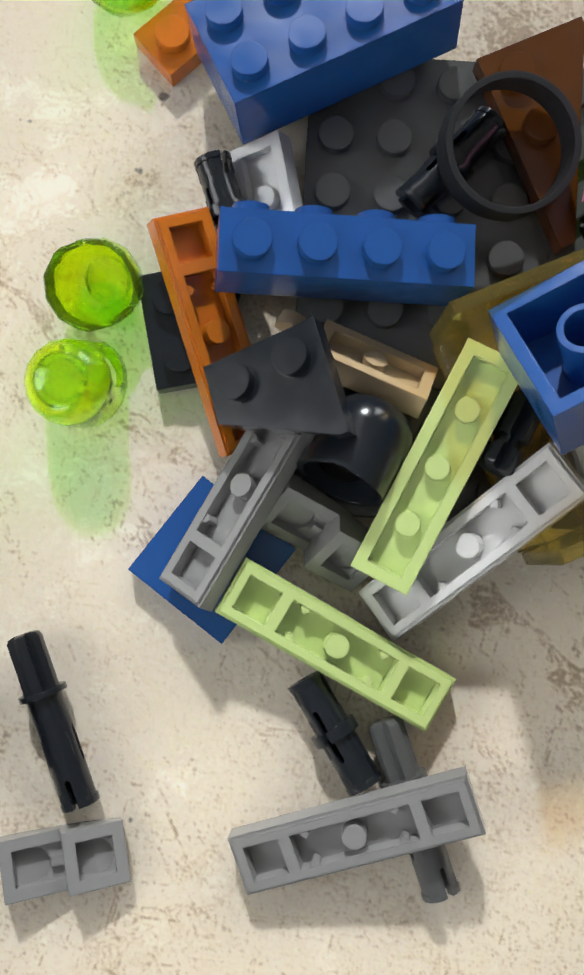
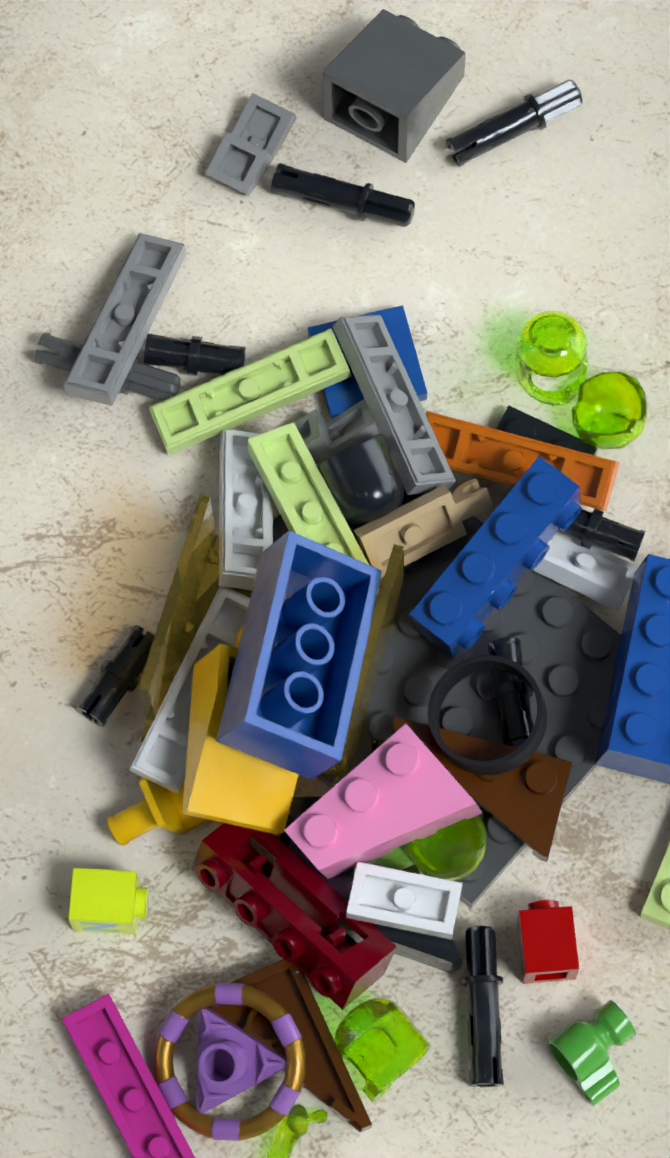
camera: 130 degrees right, 15 degrees down
(282, 385) = (437, 455): black wing -> none

